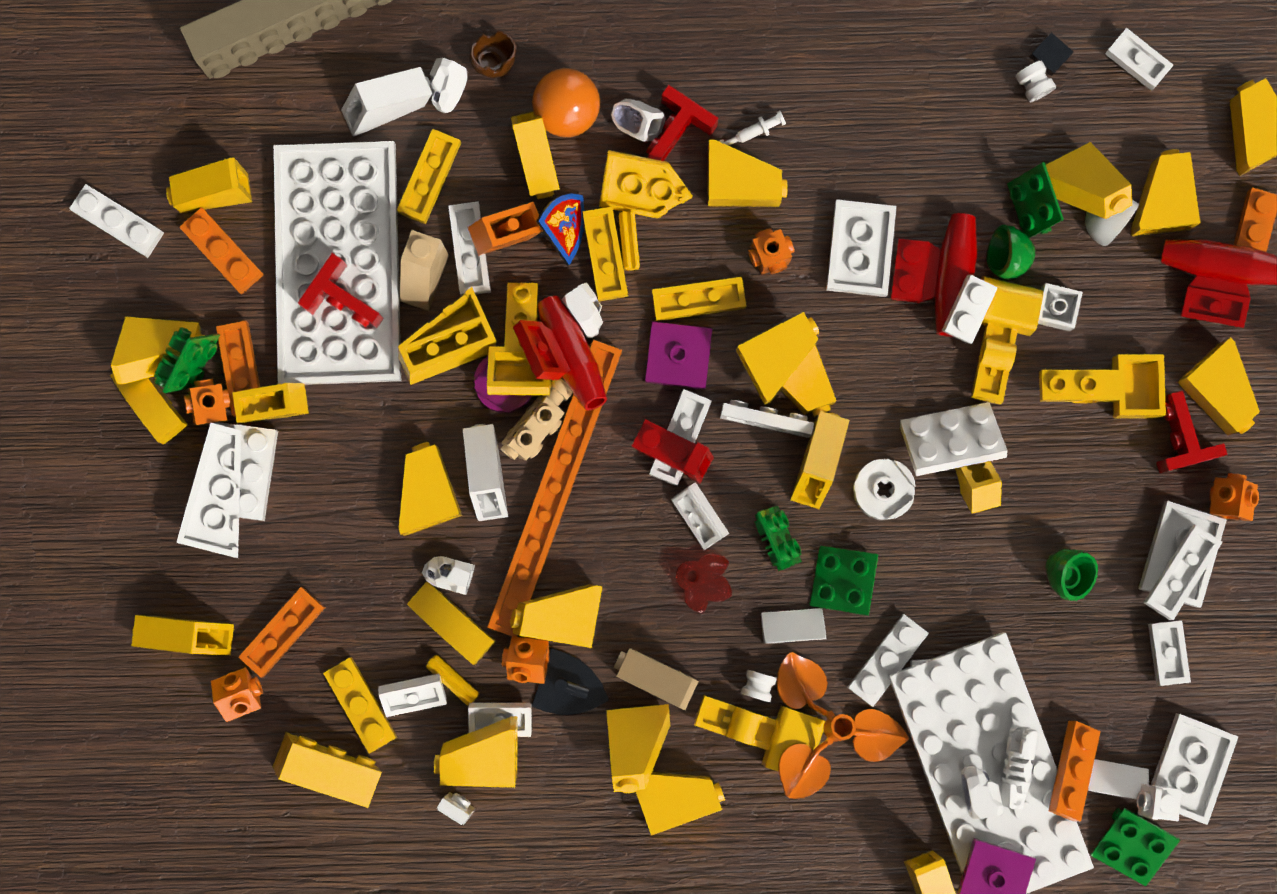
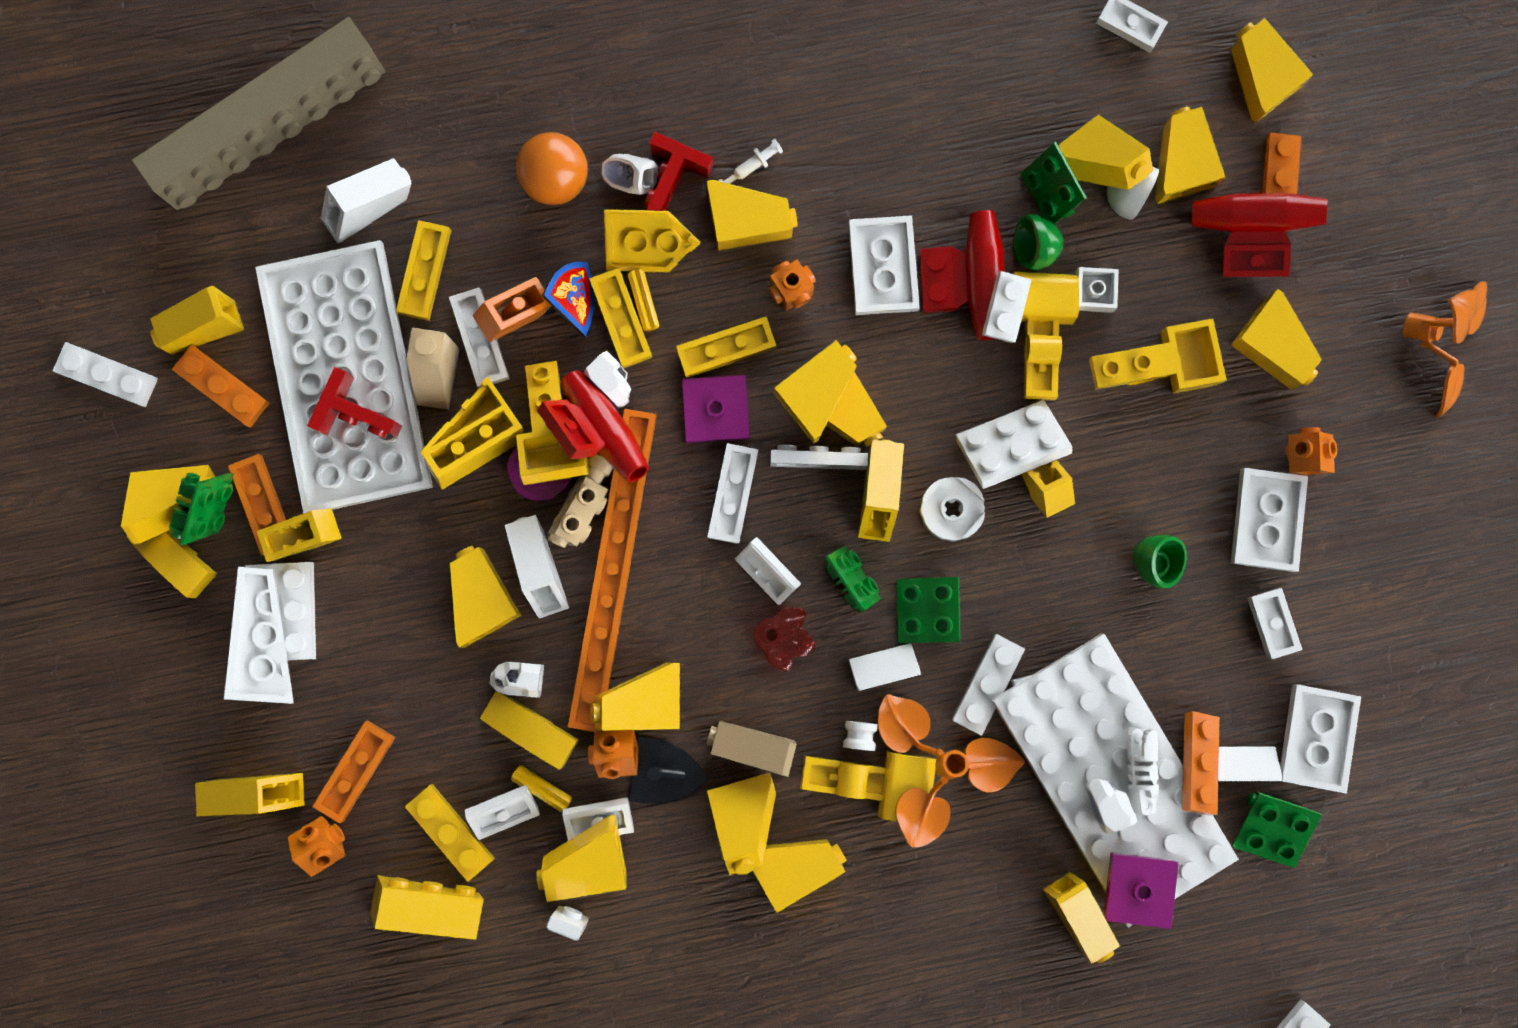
camera: 15 degrees left, 0 degrees up
(216, 411) = (235, 559): orange brick -> none
(447, 84) = (425, 171): white rock -> none
(493, 54) = (468, 133): reddish brown hair -> none
(535, 154) = (529, 229): yellow slope -> none
(673, 451) = (728, 508): red bracket -> none
(1035, 81) = (1031, 63): white wheel -> none
(1052, 53) = (1041, 33): black tile -> none
(1159, 802) = (1293, 780): white bracket -> none
(1182, 572) = (1274, 538): white plate -> none
(1184, 437) = (1249, 399): red bracket -> none

